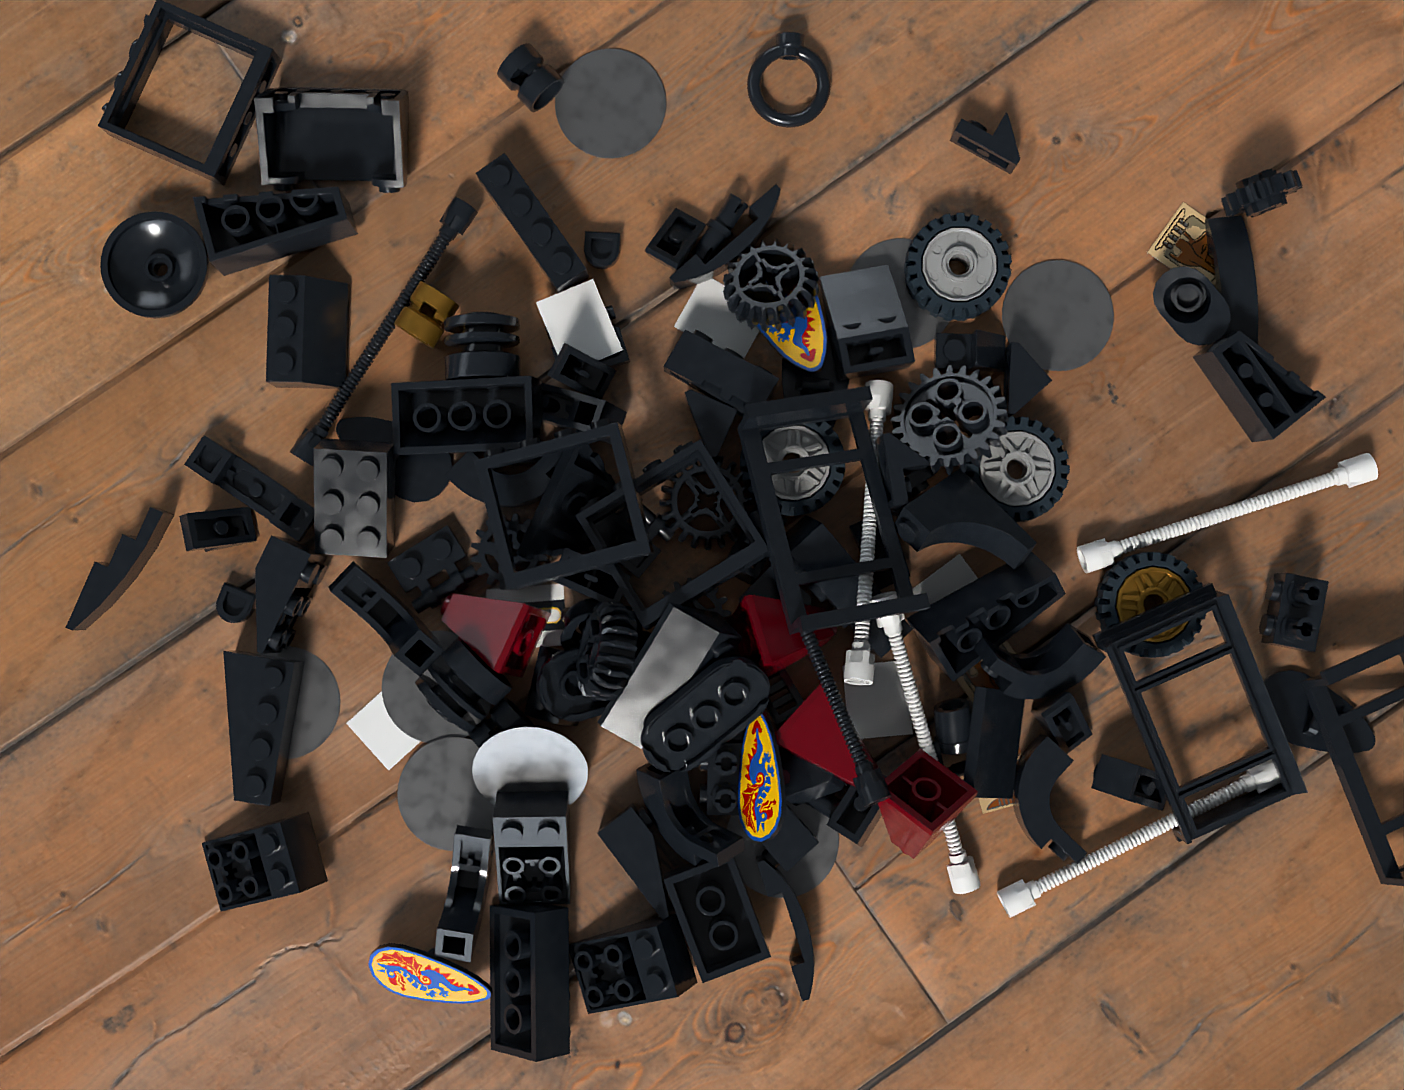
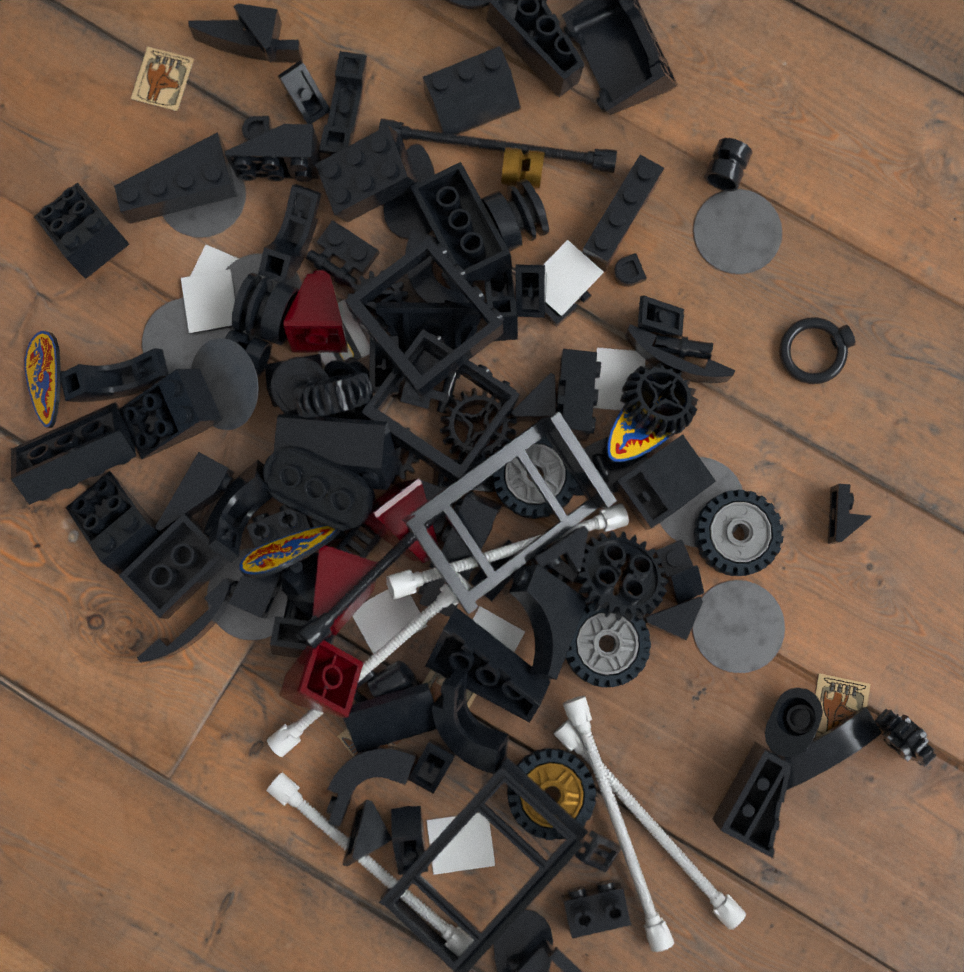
camera: 65 degrees right, 5 degrees down
(117, 543) = (262, 25): none -> black slope
(117, 689) = (162, 78): none -> sticker
(418, 747) = (208, 300): none -> white sticker
(1107, 826) = (366, 834): none -> black slope
(1172, 720) = (468, 849): none -> white sticker
(1232, 581) = (592, 847): none -> black tile
(1344, 556) = (656, 929): none -> white hose

